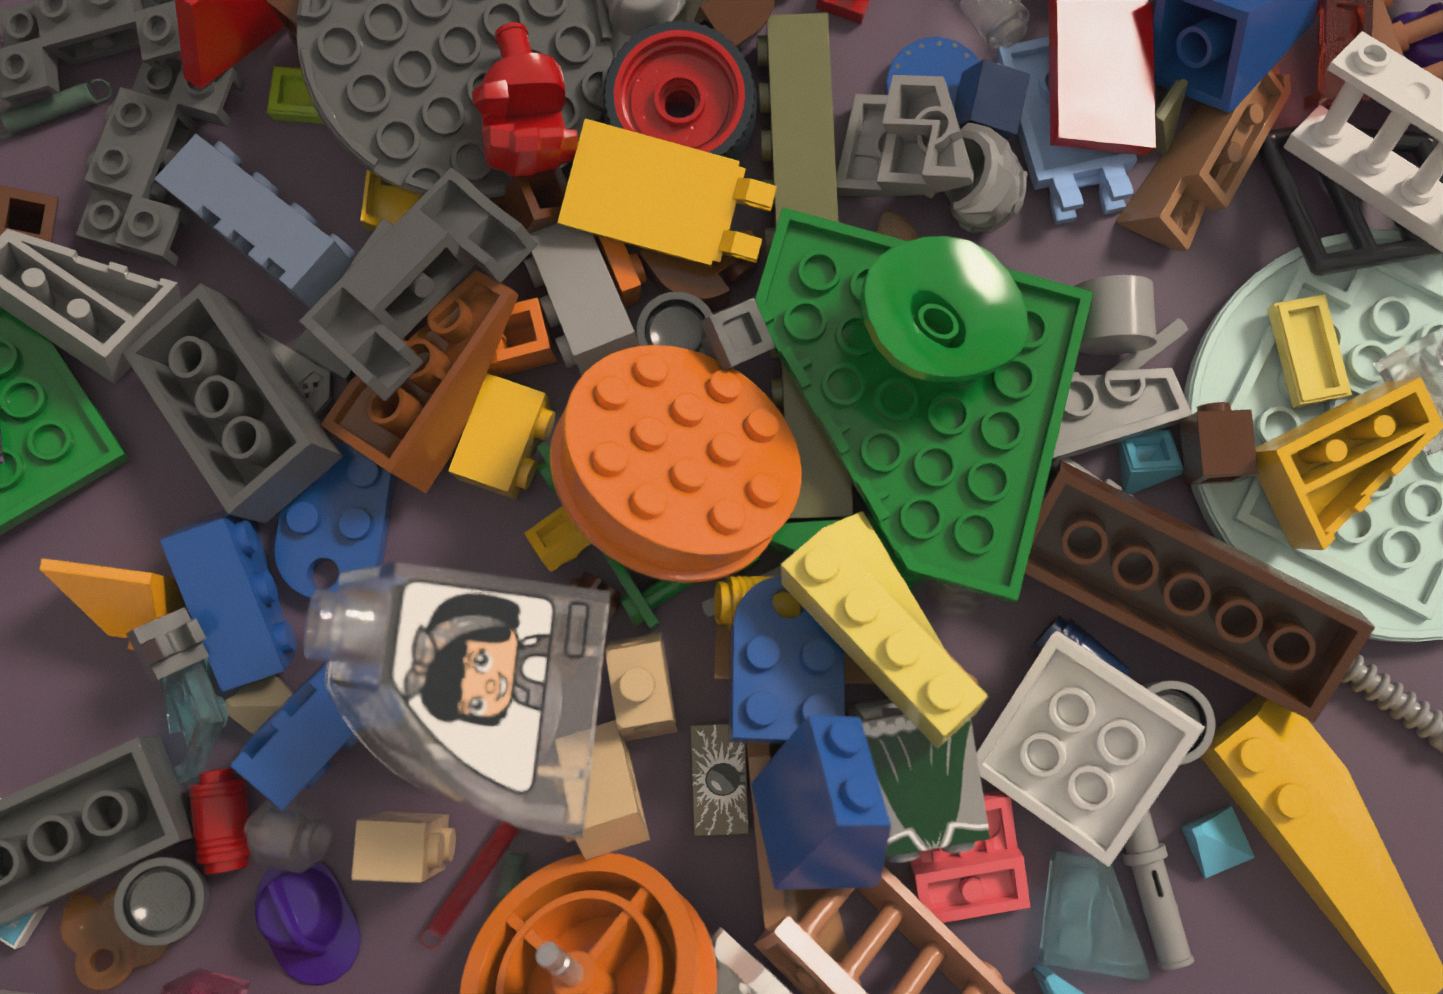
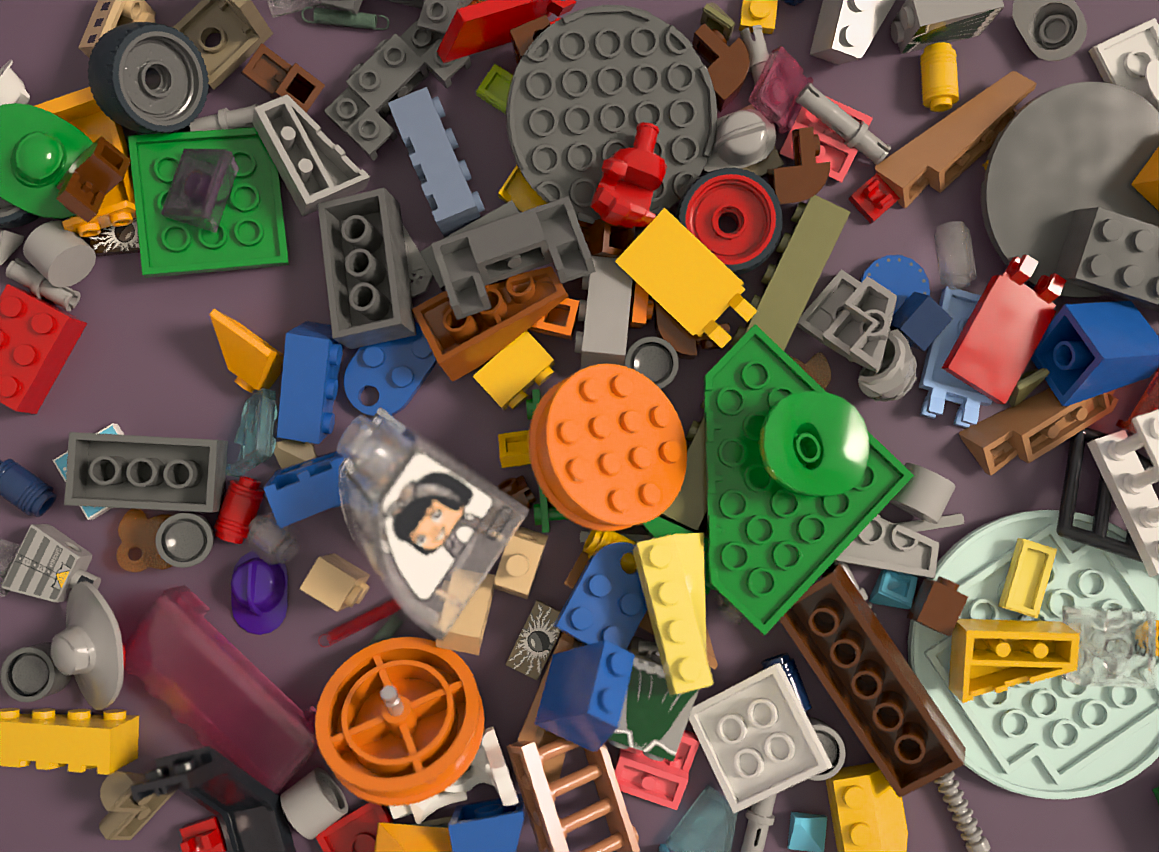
camera: 30 degrees right, 5 degrees up
(168, 644) = (261, 395): dark grey tile -> none
(736, 334) = (685, 388): dark grey tile -> none

